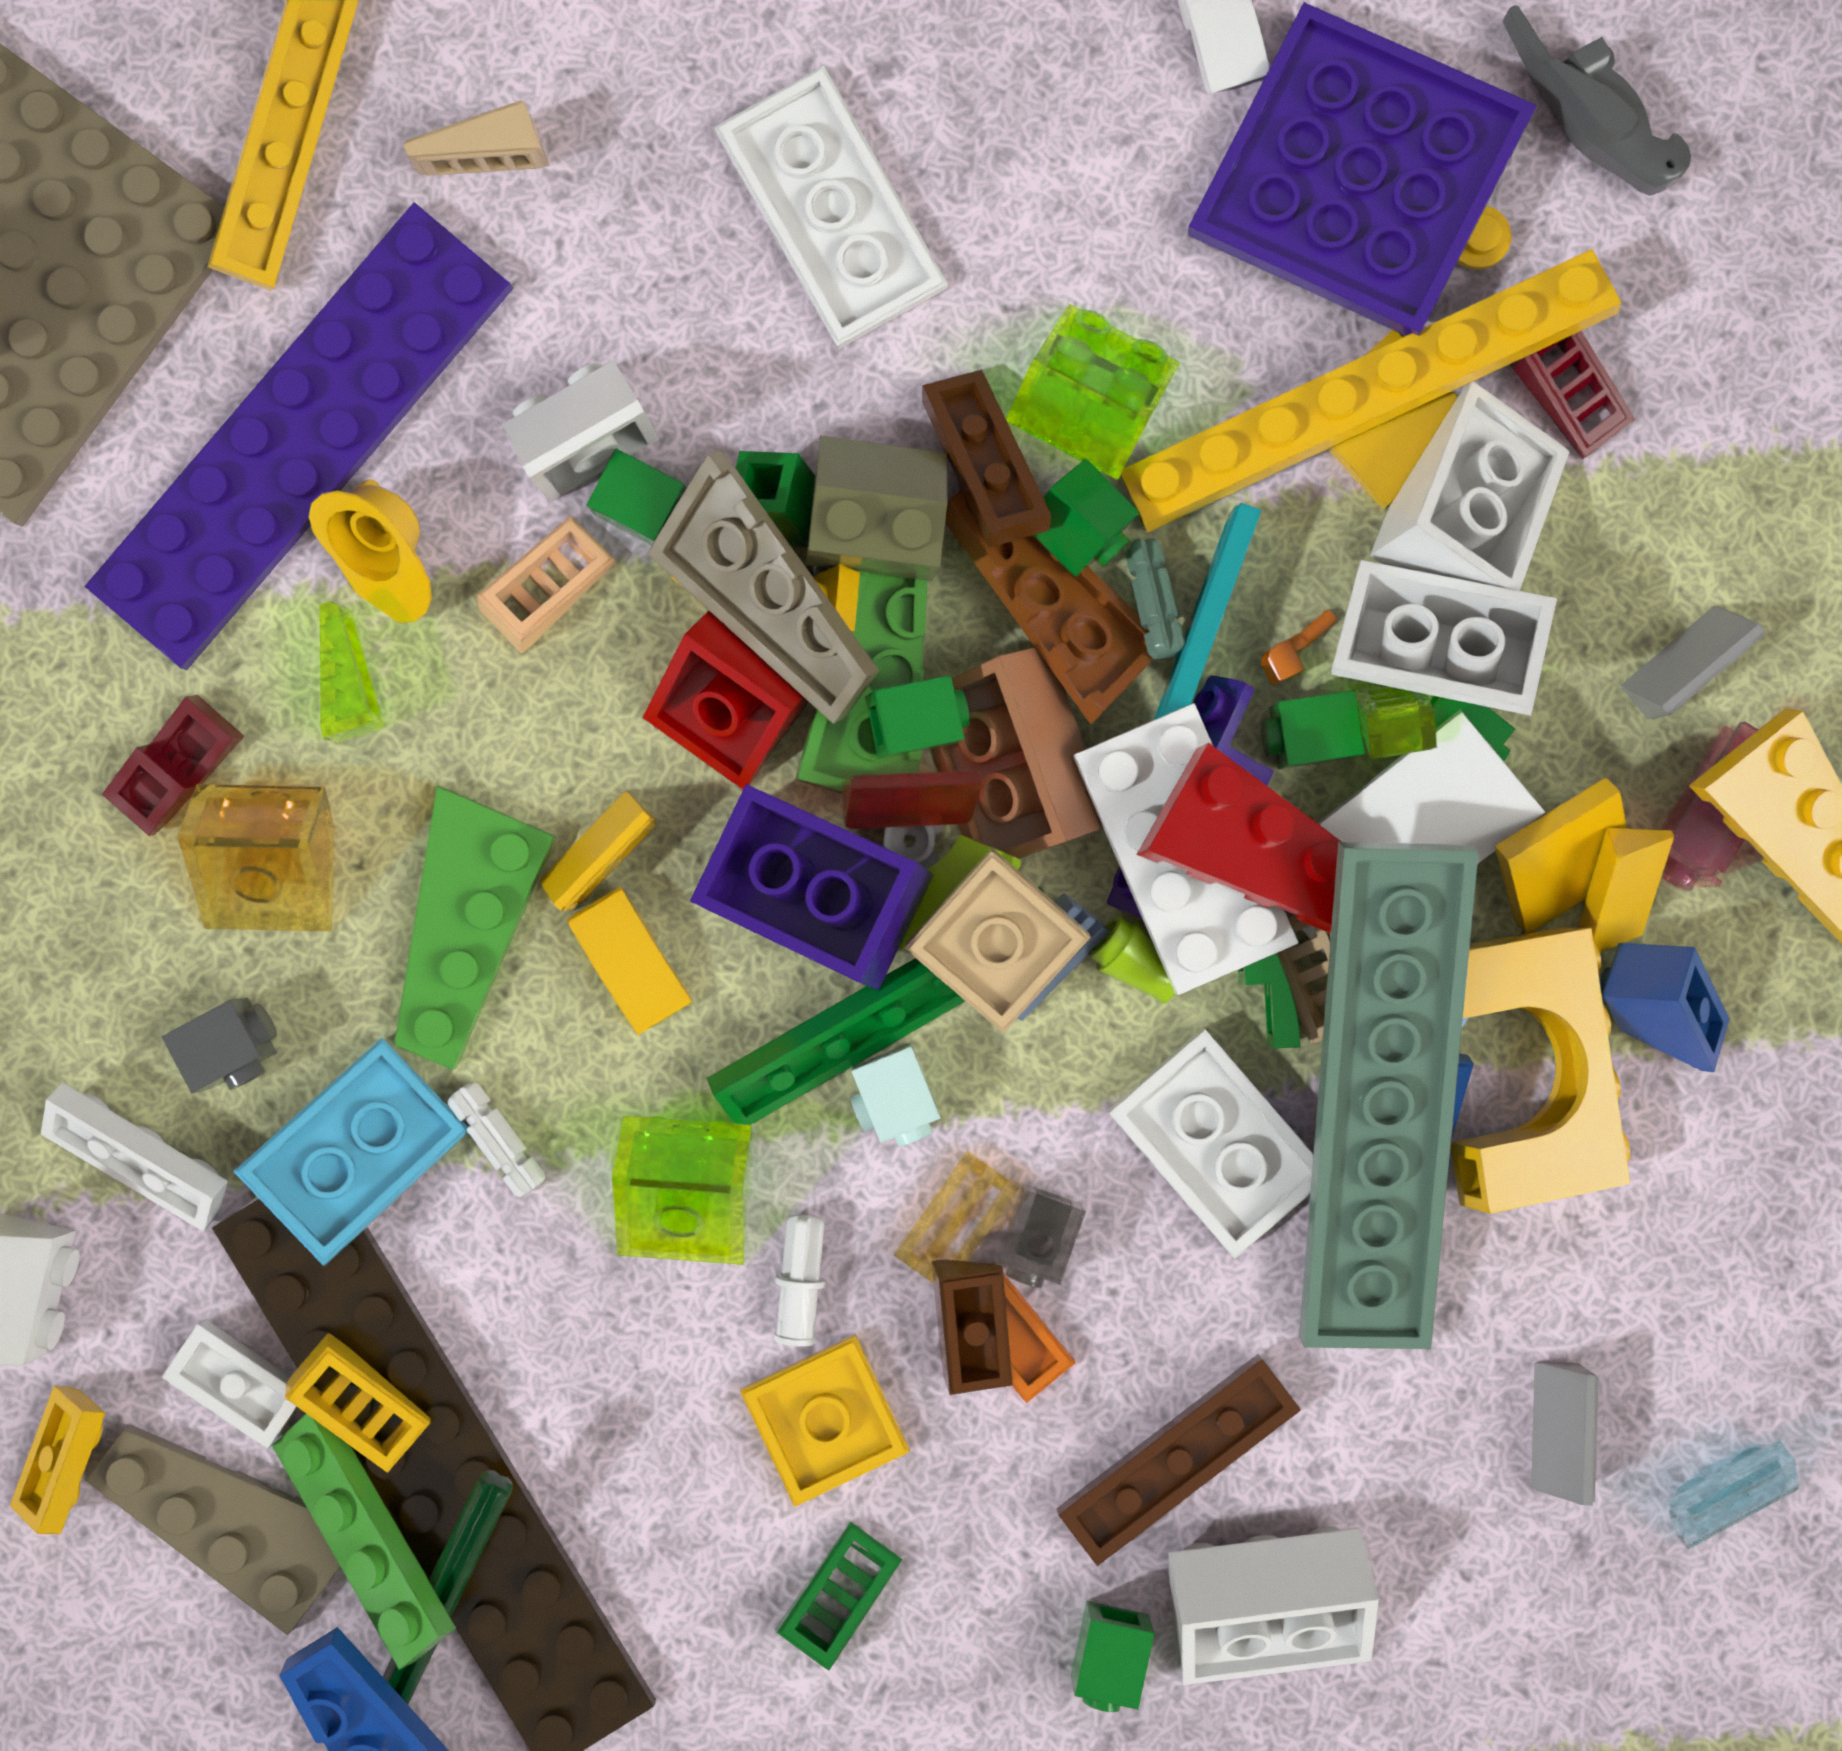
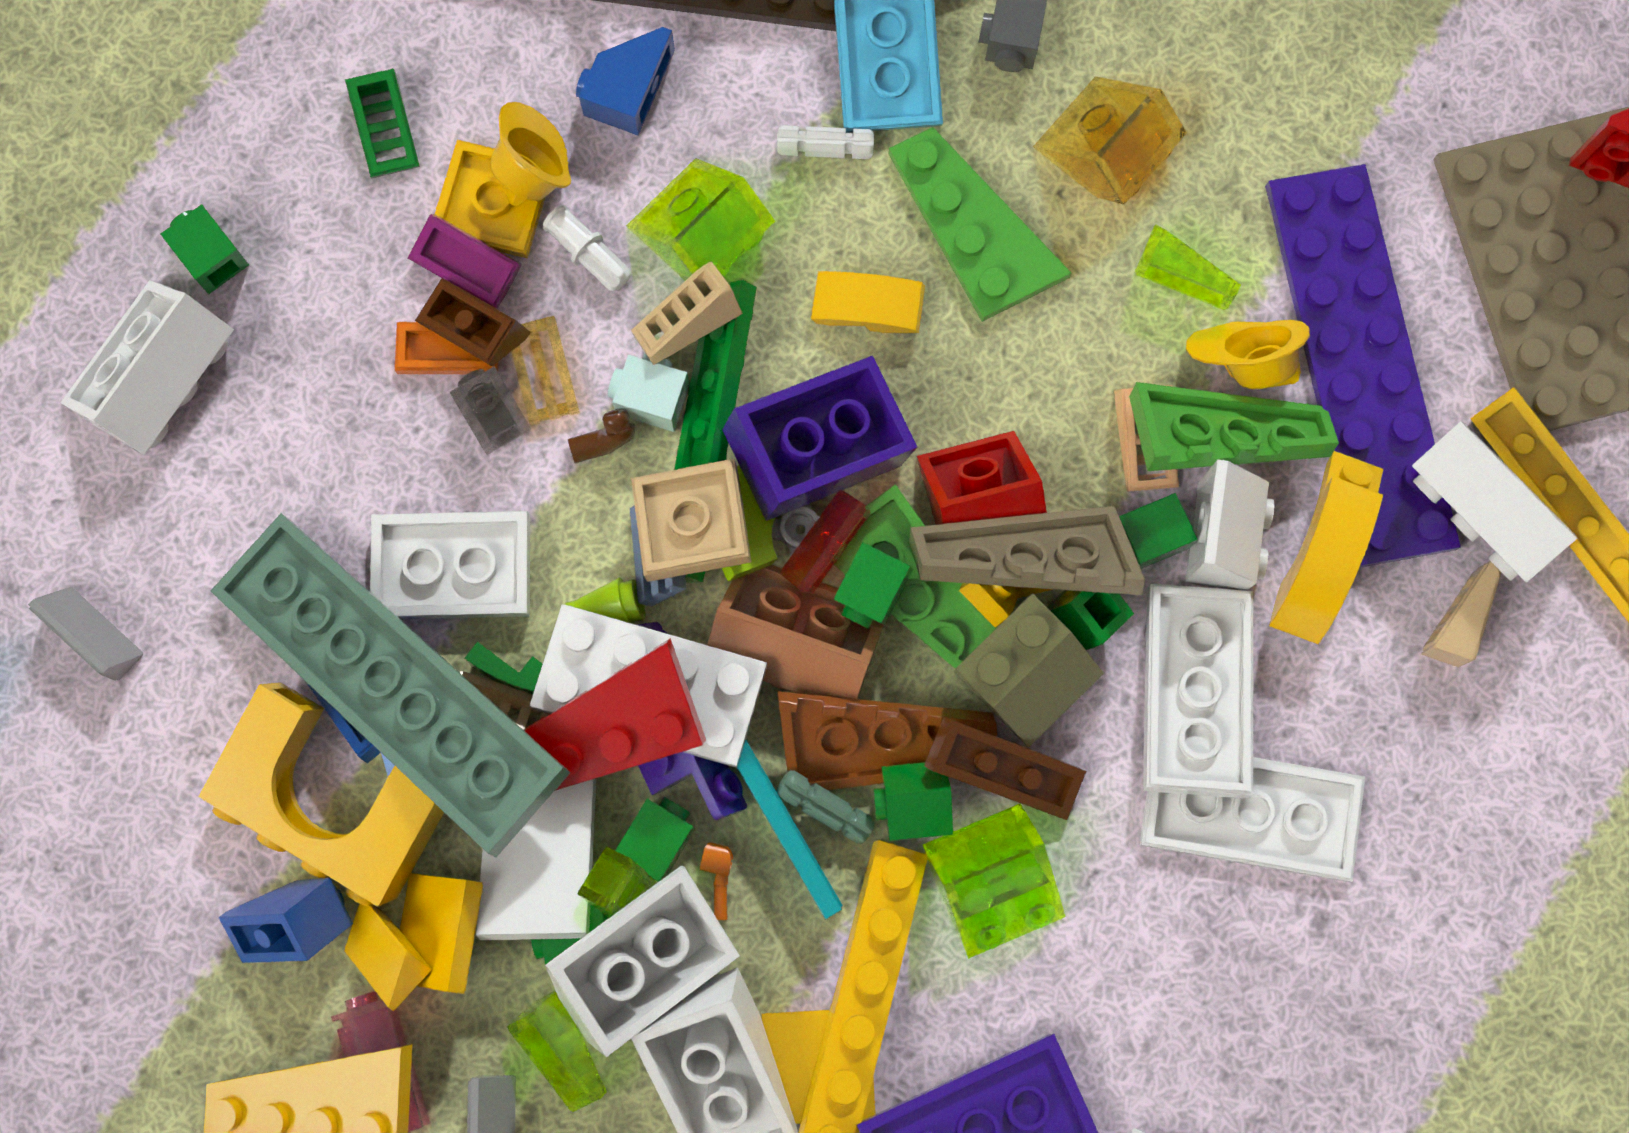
camera: 130 degrees right, 10 degrees down
(165, 772) = (1211, 135): dark red slope -> none
(351, 189) = (1492, 503): none -> white slope
(488, 512) = (1198, 427): none -> bright green wing
(519, 309) = (1331, 549): none -> yellow arch
(596, 1389) = (626, 80): none -> blue slope
(597, 852) = (950, 335): yellow slope -> none
(756, 1414) = (529, 154): none -> yellow piece
(758, 340) = (1198, 691): none -> white tile
(782, 1095) = (696, 308): none -> tan slope
(912, 1390) = (464, 260): none -> magenta tile
(964, 1094) = (604, 441): none -> reddish brown arm
(1177, 1459) = (282, 384): reddish brown plate -> none
(1573, 661) = (558, 1051): none -> clear neon green slope

